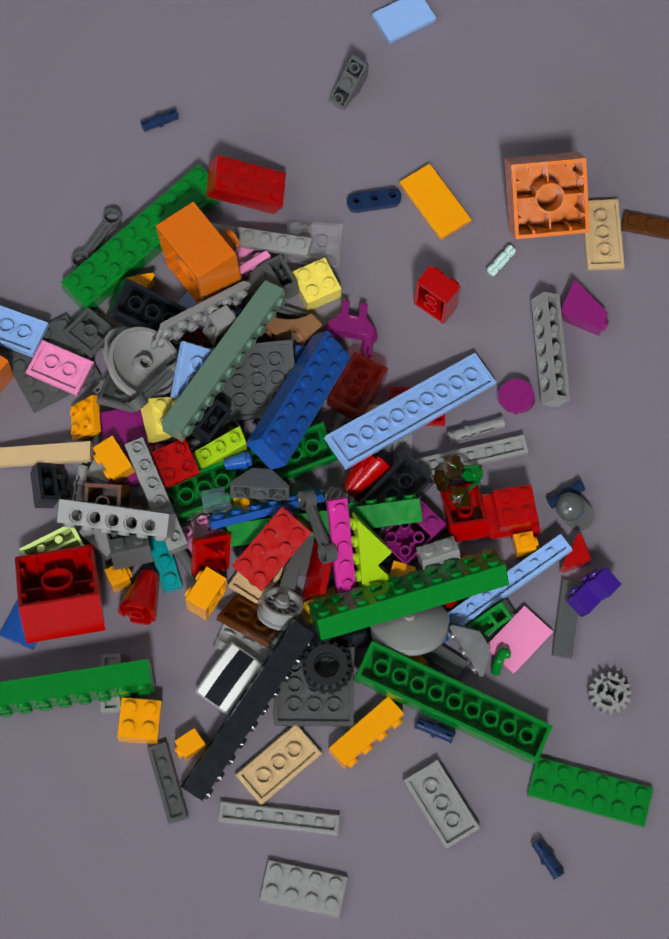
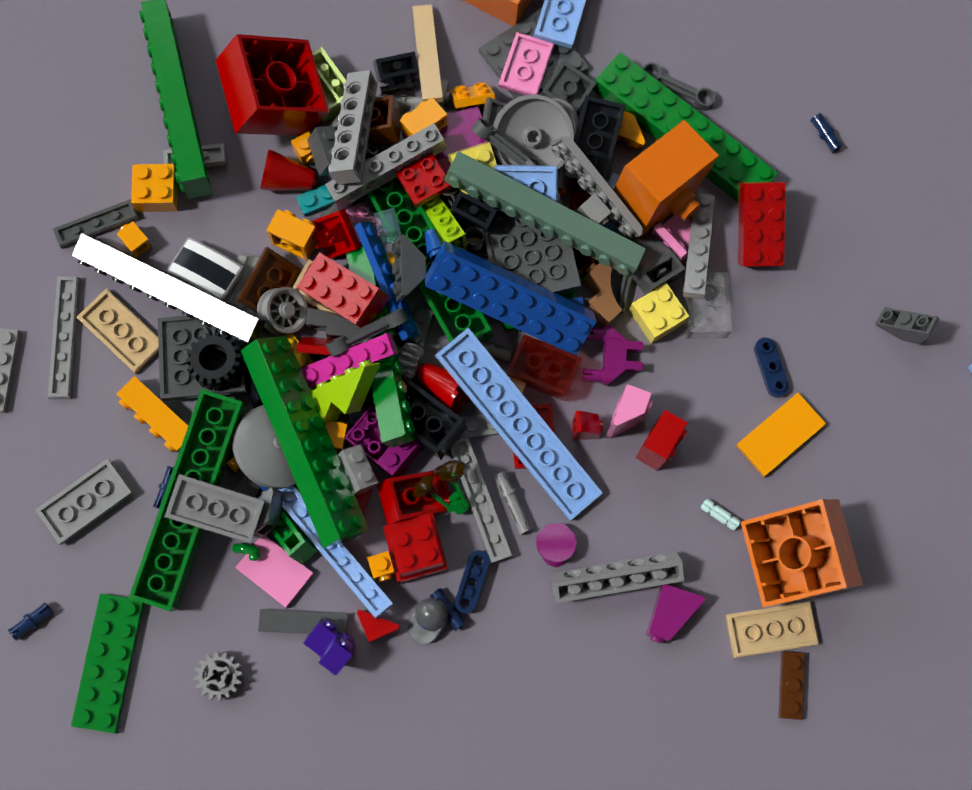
camera: 80 degrees right, 5 degrees up
(408, 318) = (630, 409): none -> bright pink slope
(414, 358) = (586, 425): none -> red slope
(467, 674) = (214, 508): none -> light grey plate
(537, 464) = (475, 572): none -> dark blue plate

